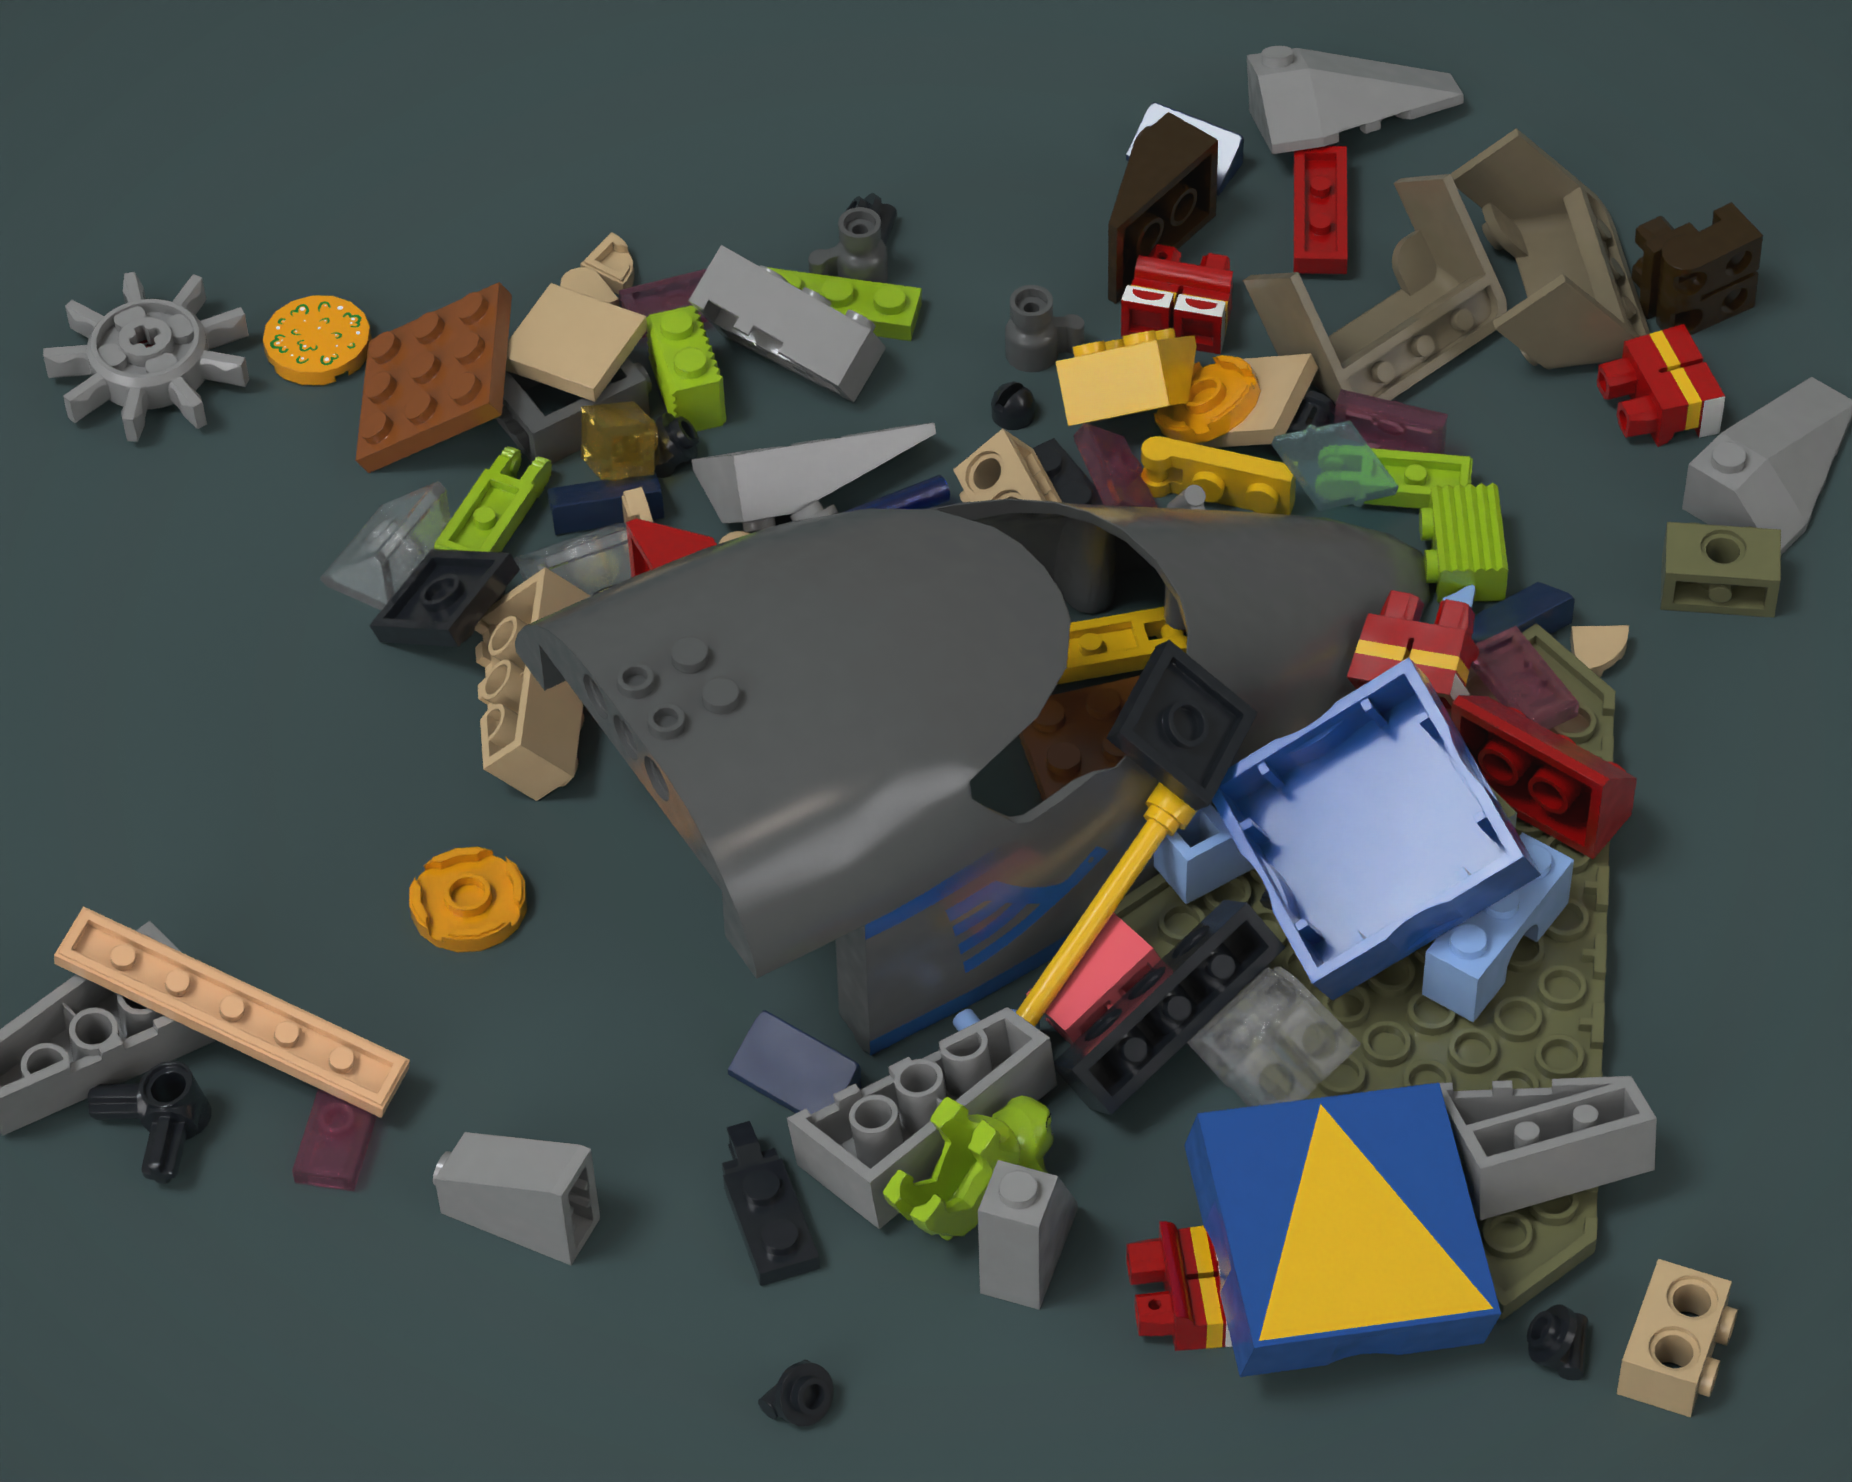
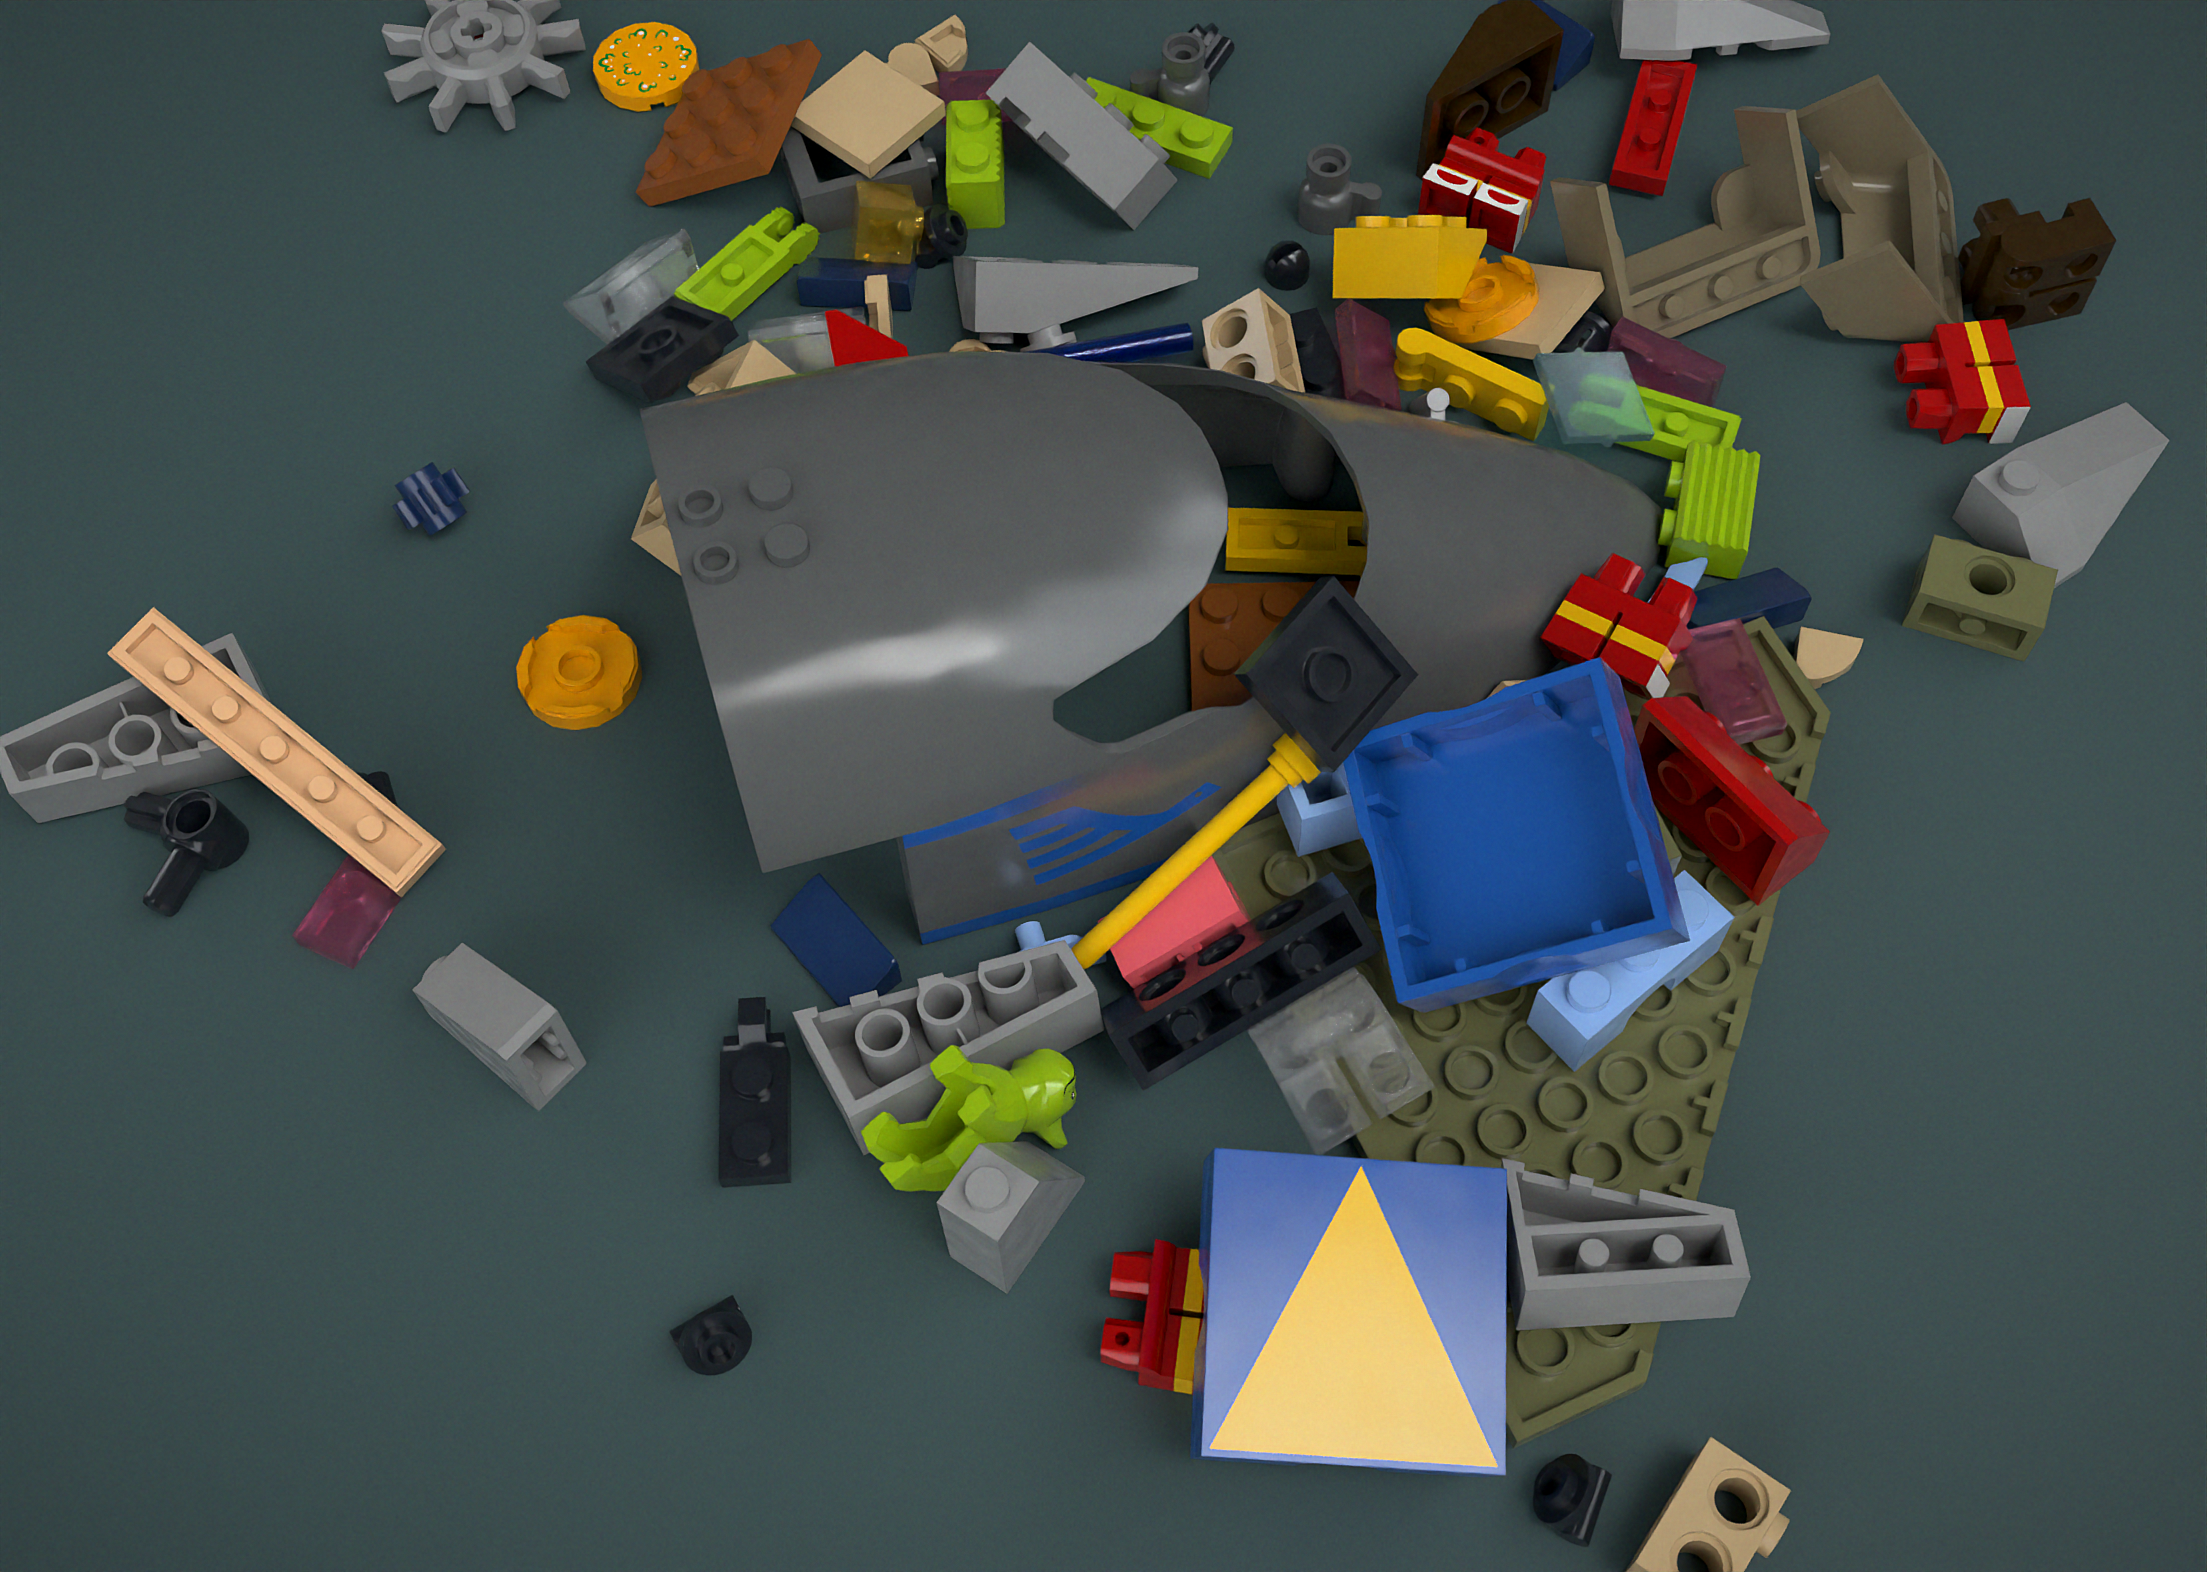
camera: 15 degrees right, 10 degrees up
(272, 776) = (431, 498): none -> dark blue gear

